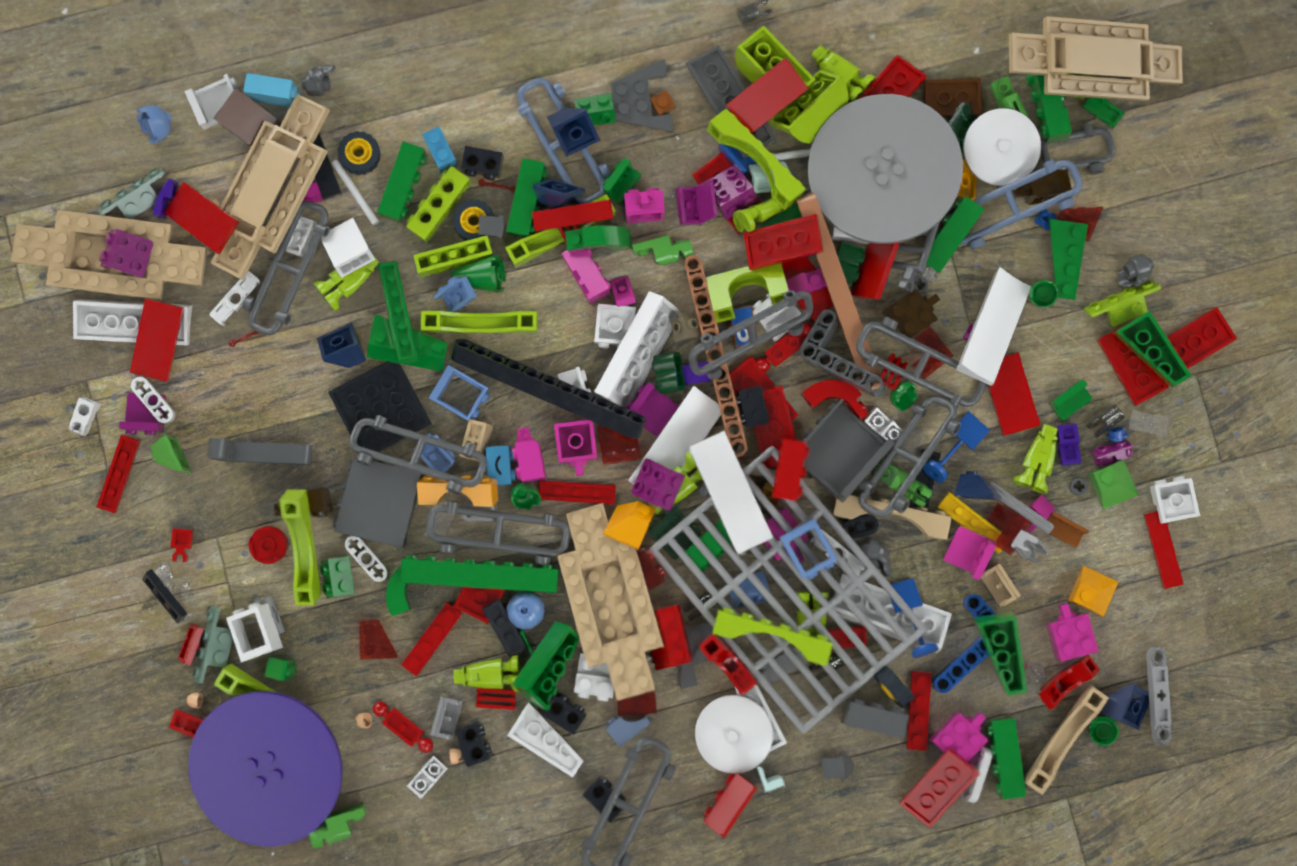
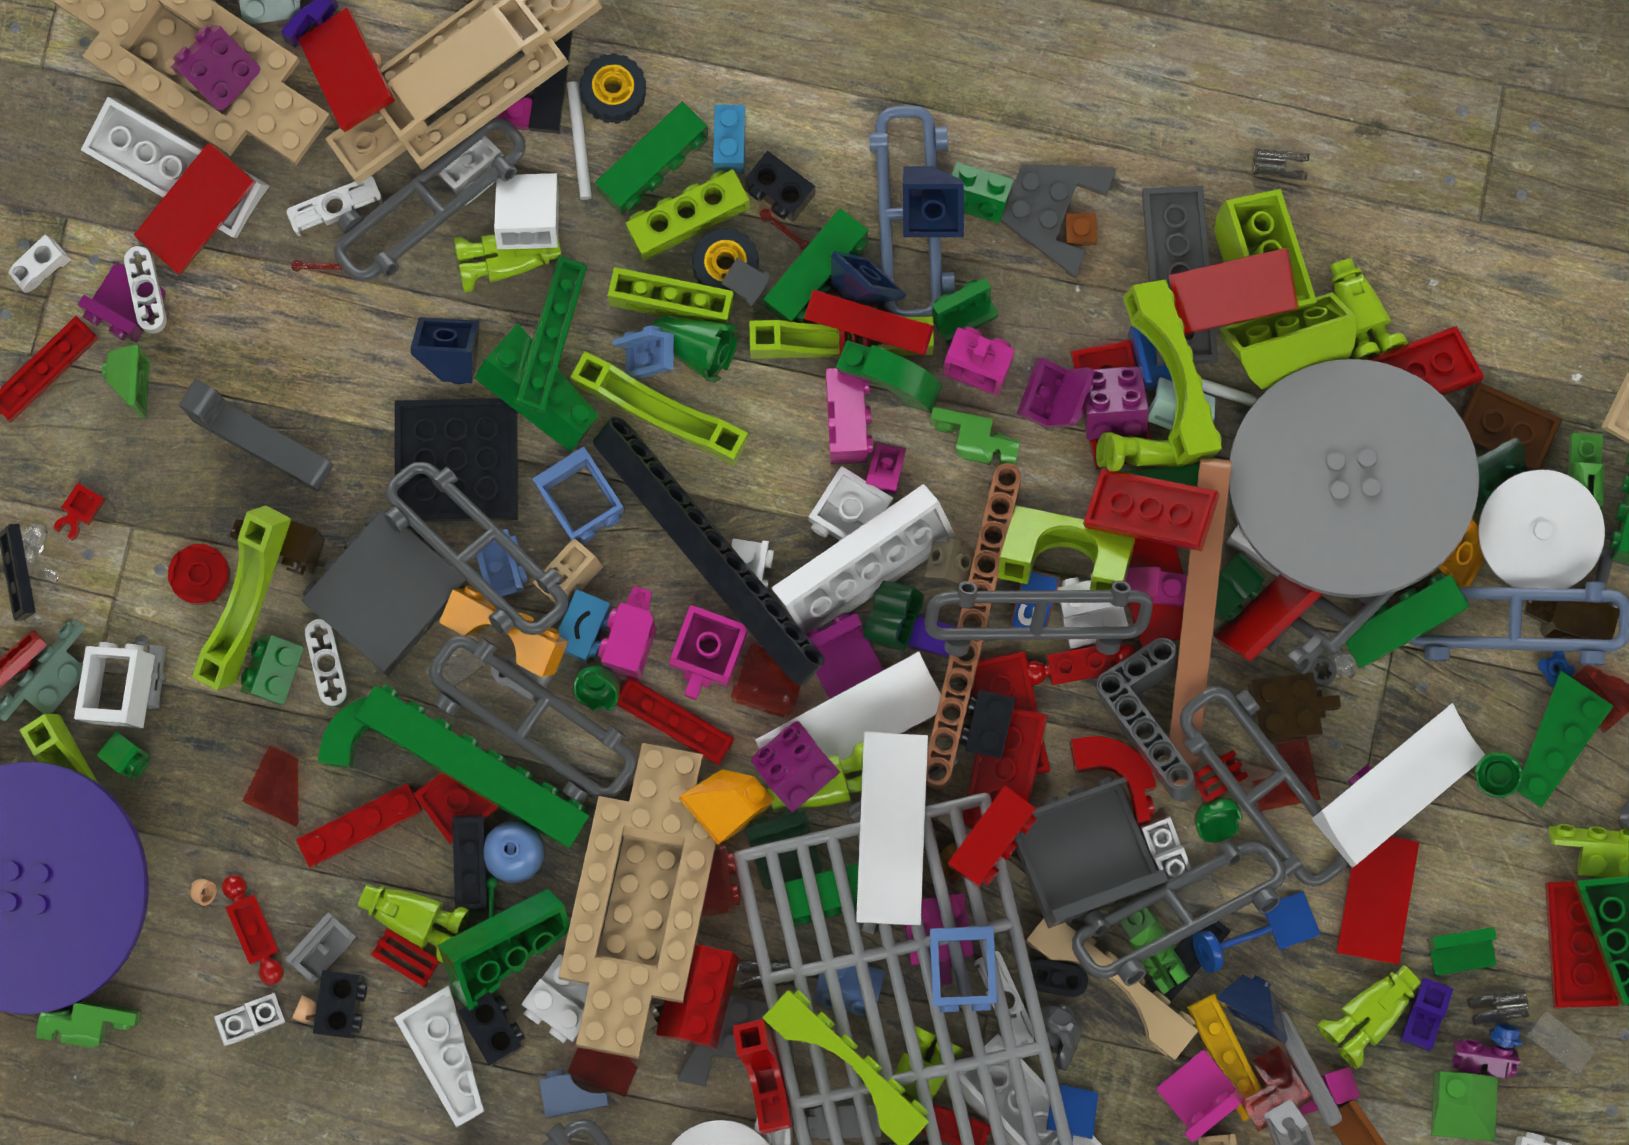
camera: 30 degrees right, 5 degrees down
(1082, 482) = (1419, 1079): dark grey bush -> none

